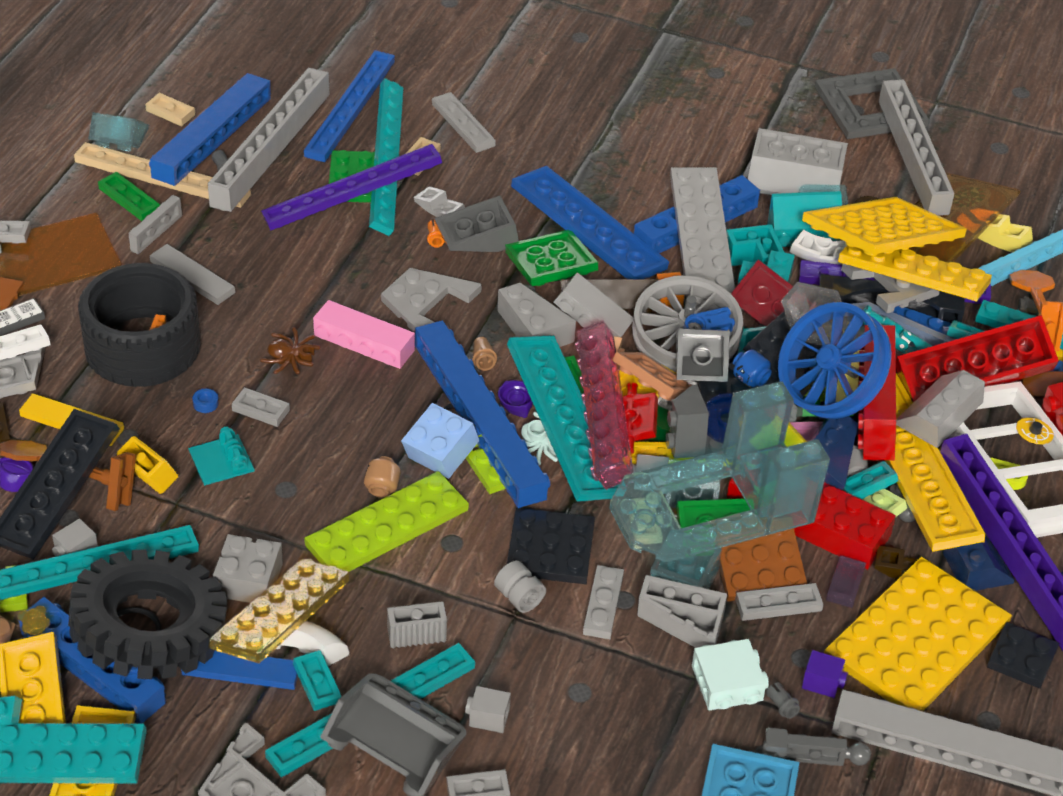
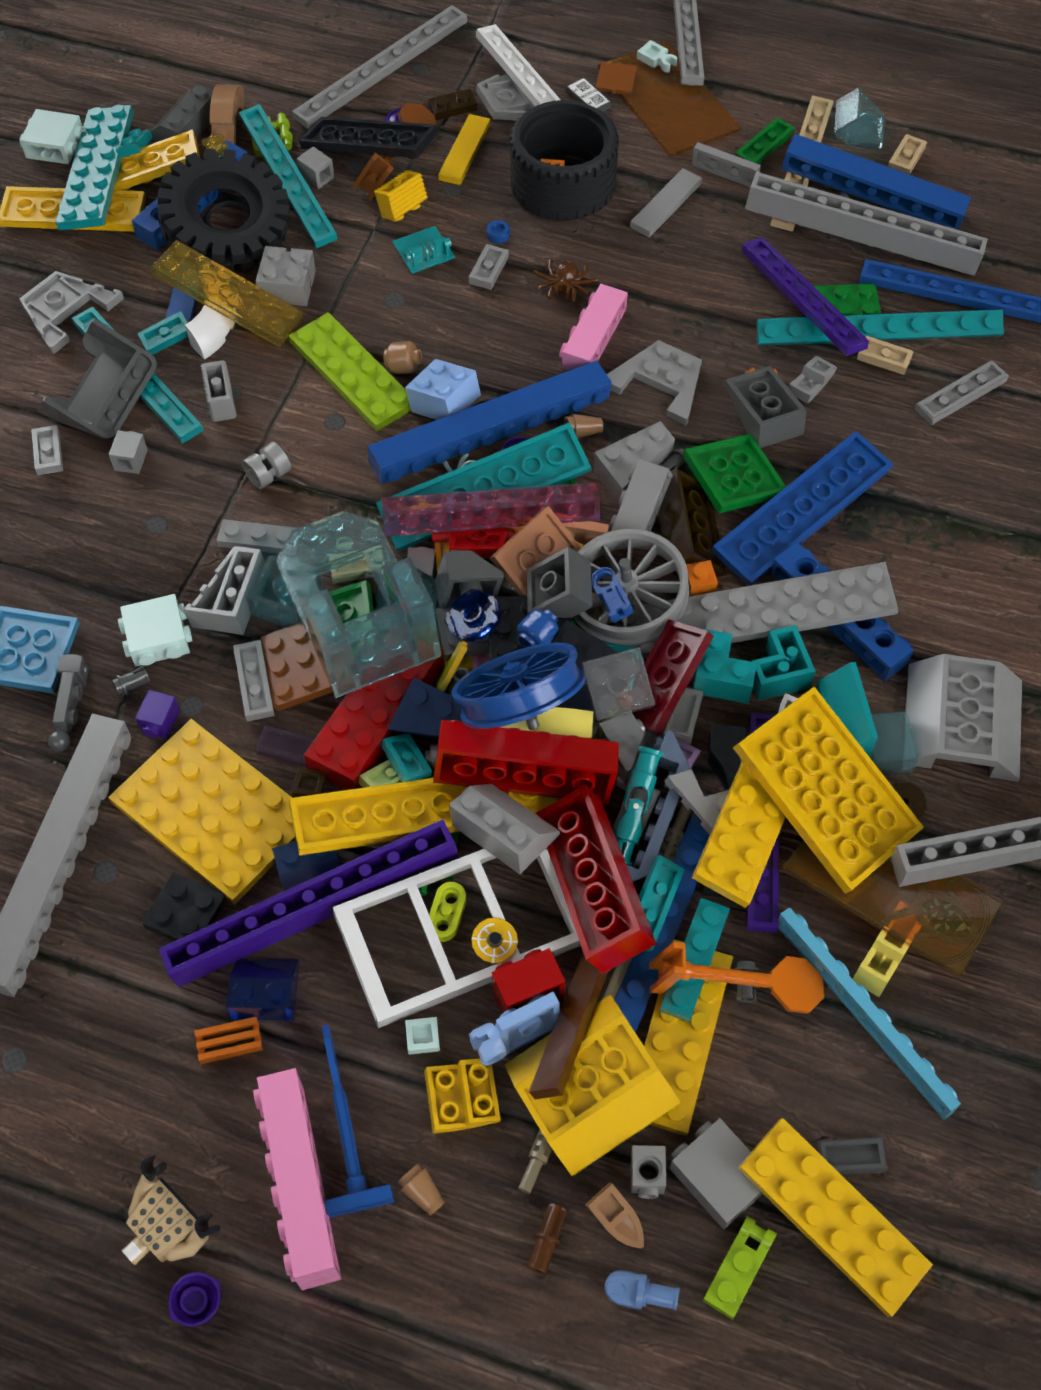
camera: 90 degrees right, 15 degrees up
(552, 544) = (326, 488): black plate -> none

